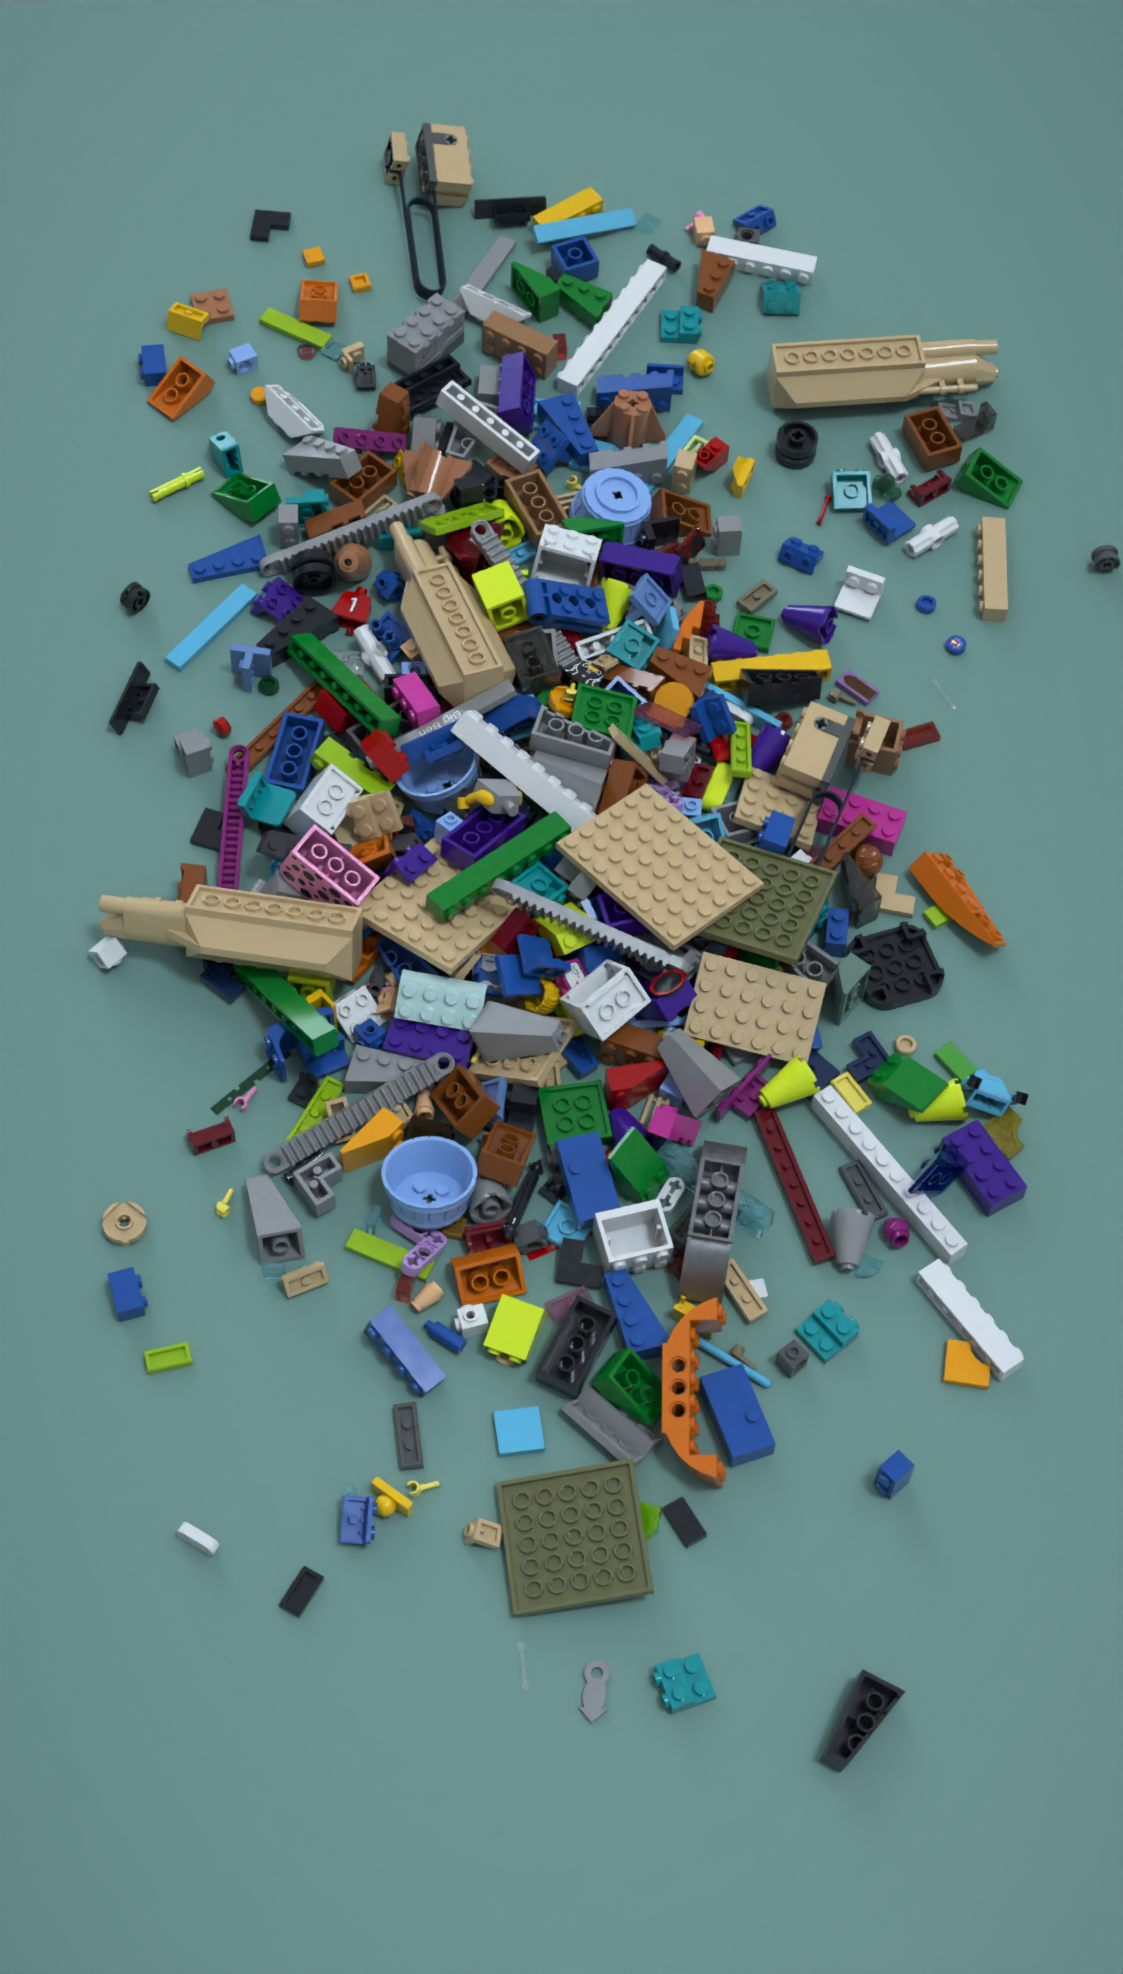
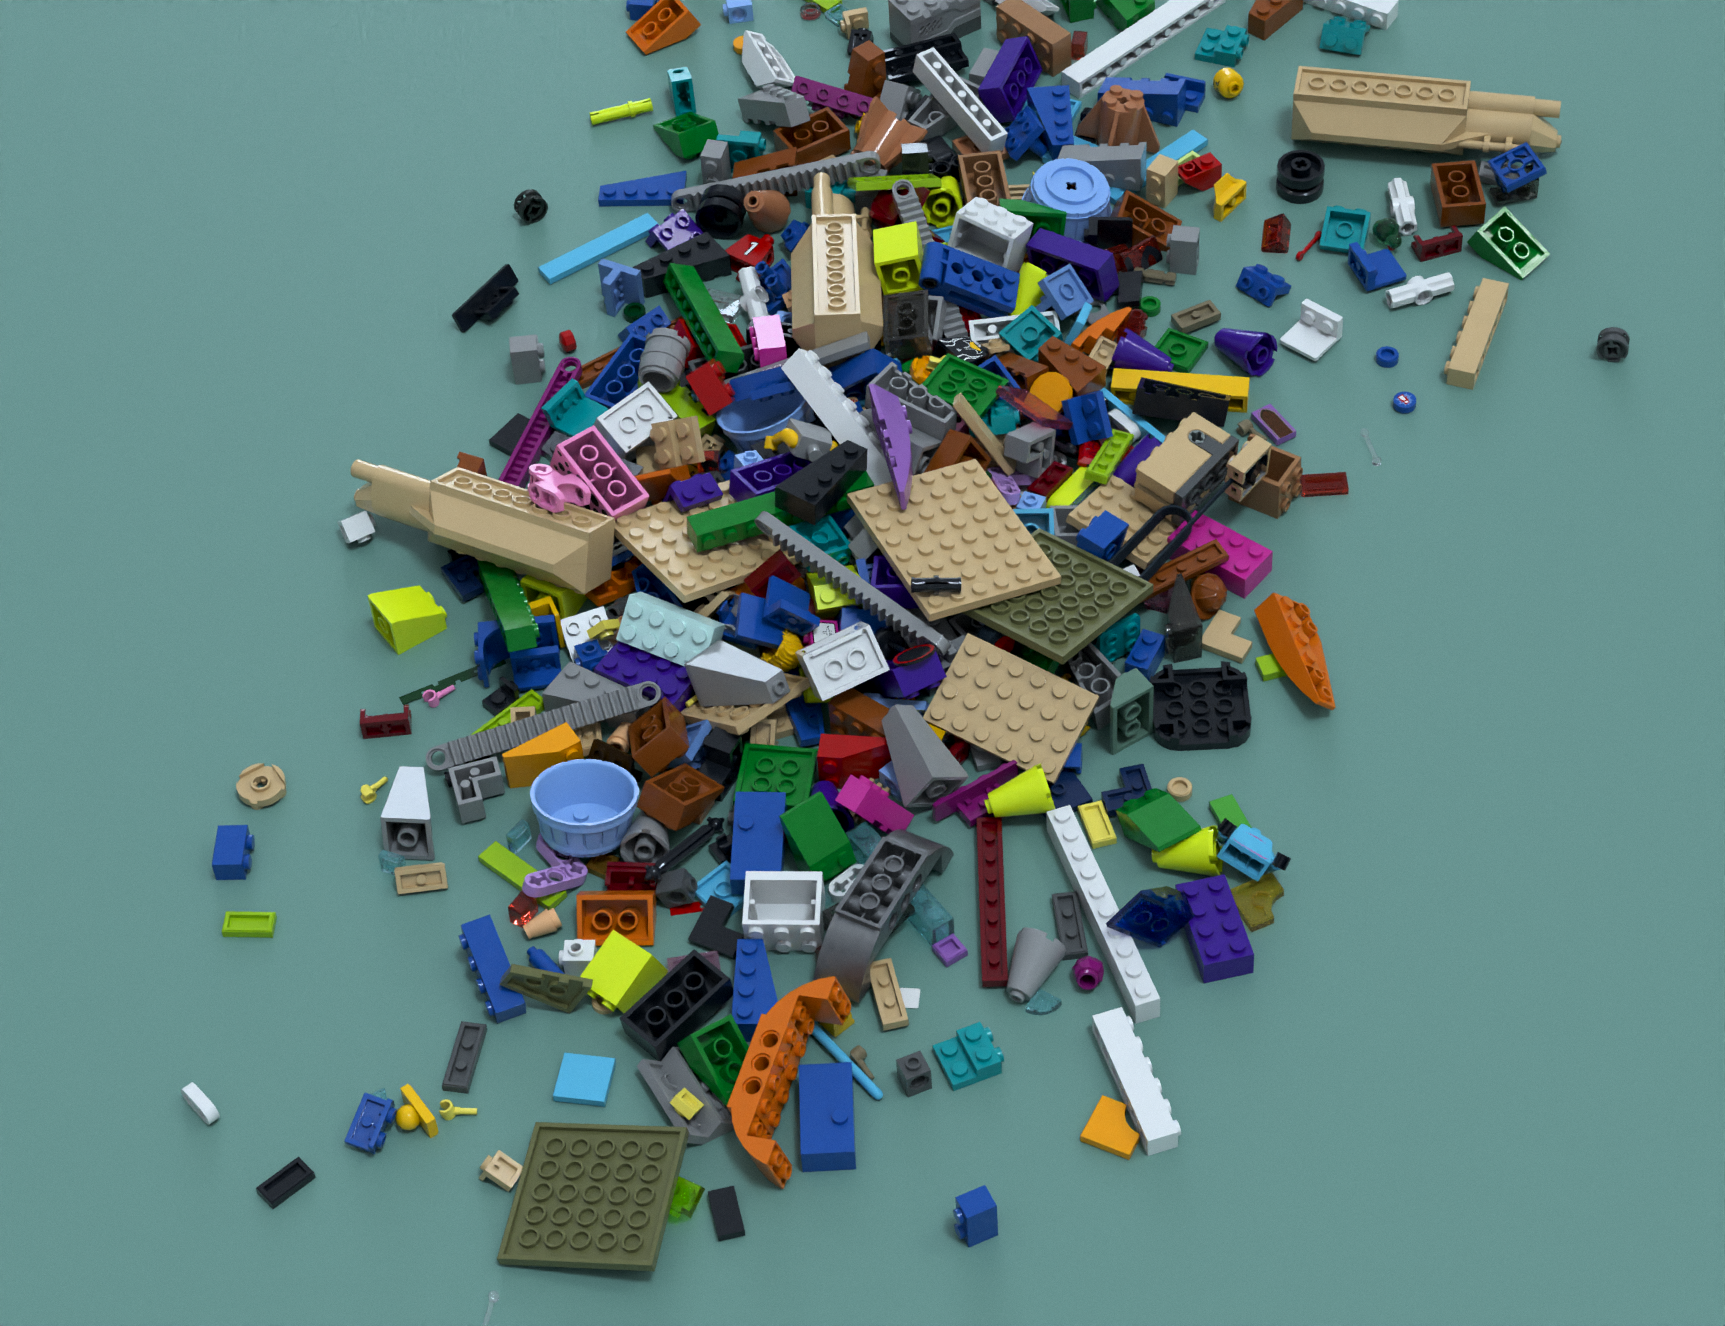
camera: 25 degrees right, 10 degrees down
(190, 1031) = (406, 616): none -> neon yellow slope
(287, 698) = (654, 319): none -> blue bracket
(297, 891) = (552, 489): none -> bright pink piece
(336, 739) = (663, 359): none -> light grey piece
(376, 1009) = (604, 629): none -> light yellow plate
(462, 1358) = (548, 987): none -> olive wing
(530, 841) = (822, 483): none -> black wedge
(580, 785) = (894, 439): none -> medium lavender wedge
(620, 1435) = (686, 1104): none -> light yellow plate
(659, 920) = (935, 584): none -> black pin
(774, 1237) = (949, 950): none -> medium lavender tile
(792, 504) = (1276, 234): none -> clear red slope
(975, 390) = (1523, 150): none -> blue piece

